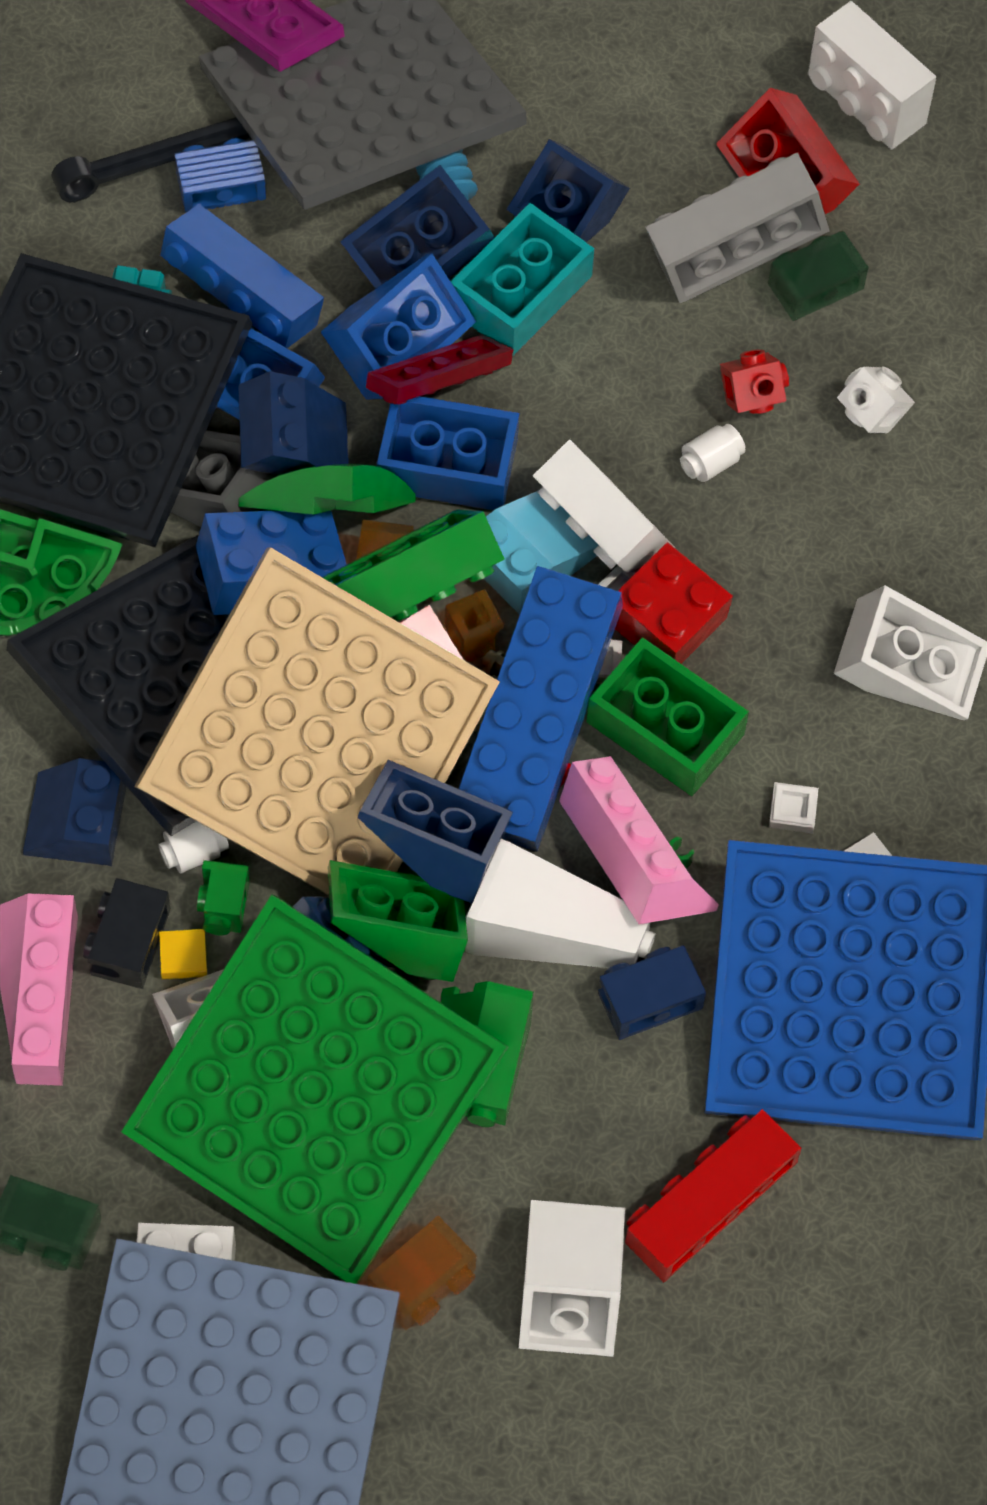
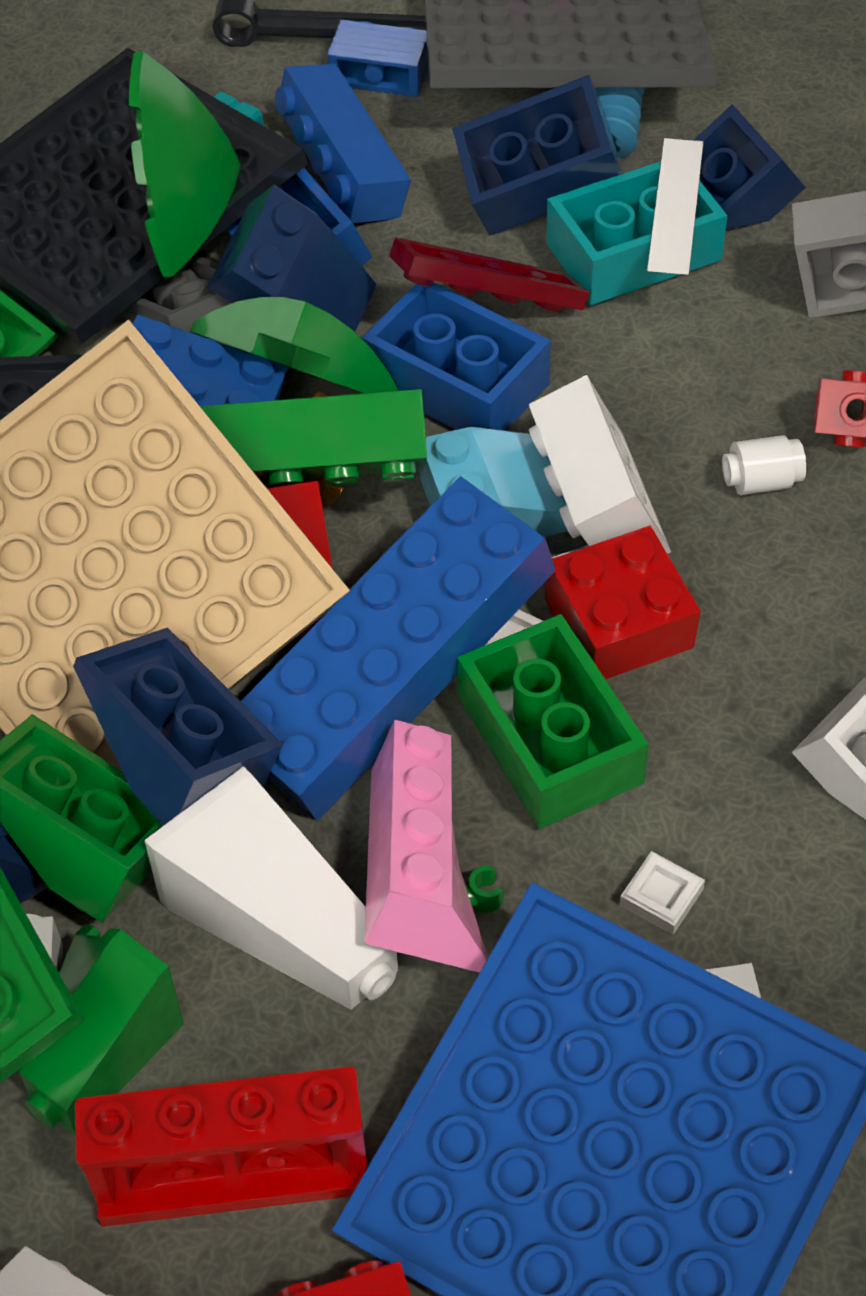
camera: 30 degrees right, 10 degrees down
(182, 376) = (181, 161): none -> green brick
(398, 321) = (480, 212): blue slope -> none
(473, 625) = (372, 530): clear orange brick -> none
(551, 253) = (675, 207): none -> white sticker
(622, 1087) = (222, 1145): none -> red fence
(651, 991) = (360, 1031): dark blue brick -> none

